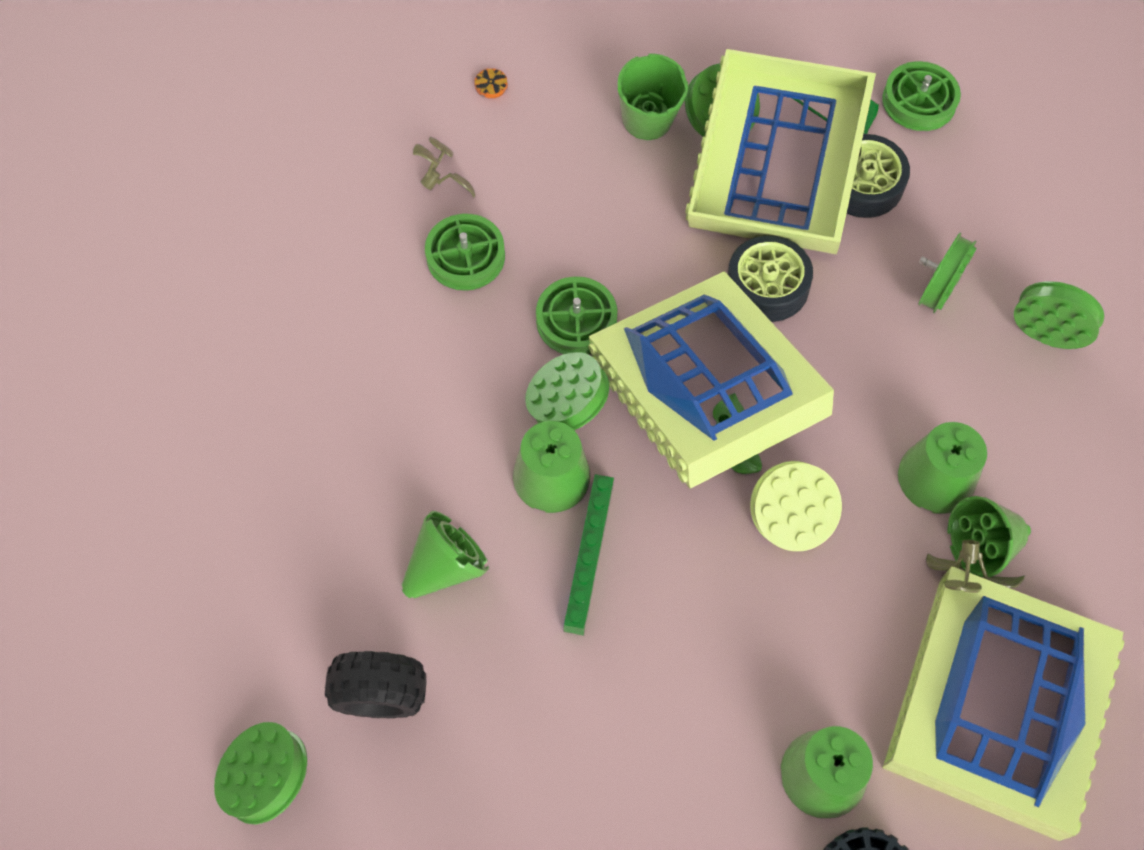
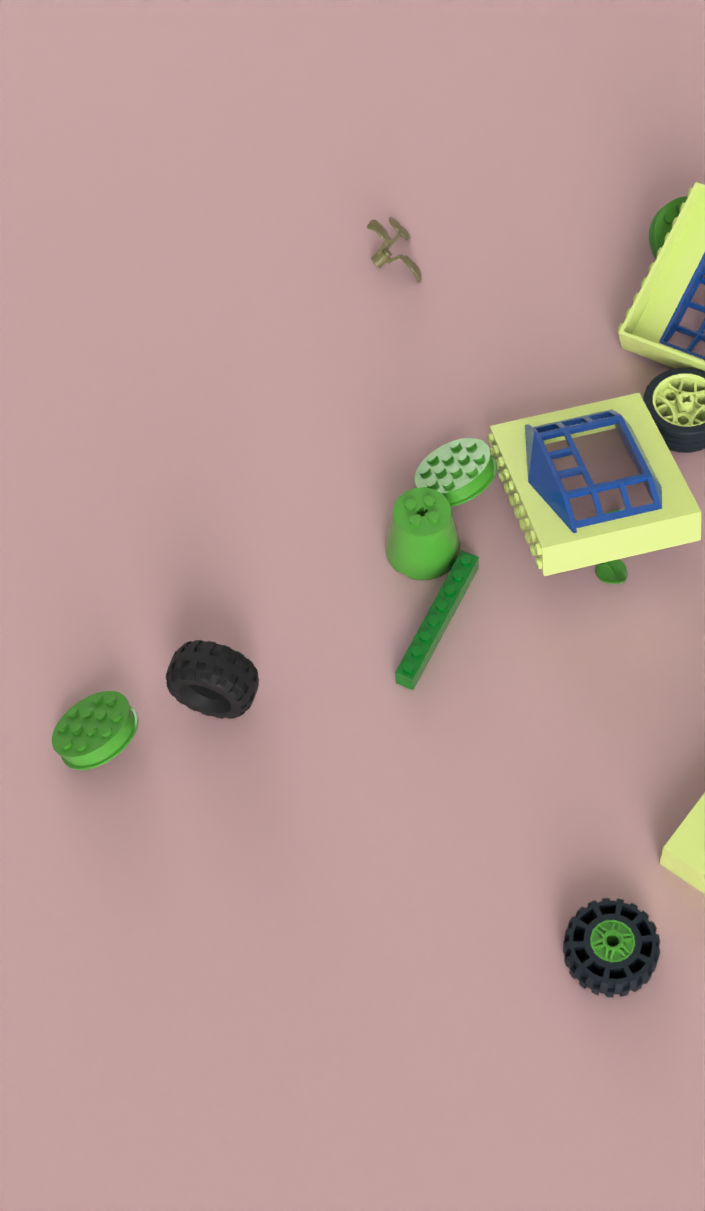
camera: 20 degrees right, 5 degrees down
(442, 558) = (299, 591): bright green cone -> none
(465, 251) = (396, 330): bright green wheel -> none
(491, 83) = (465, 177): tile -> none
(572, 312) = (483, 401): bright green wheel -> none
(651, 95) = (614, 215): bright green cone -> none
(796, 506) = (644, 616): yellowish green wheel -> none
(815, 782) = (599, 858): bright green cone -> none

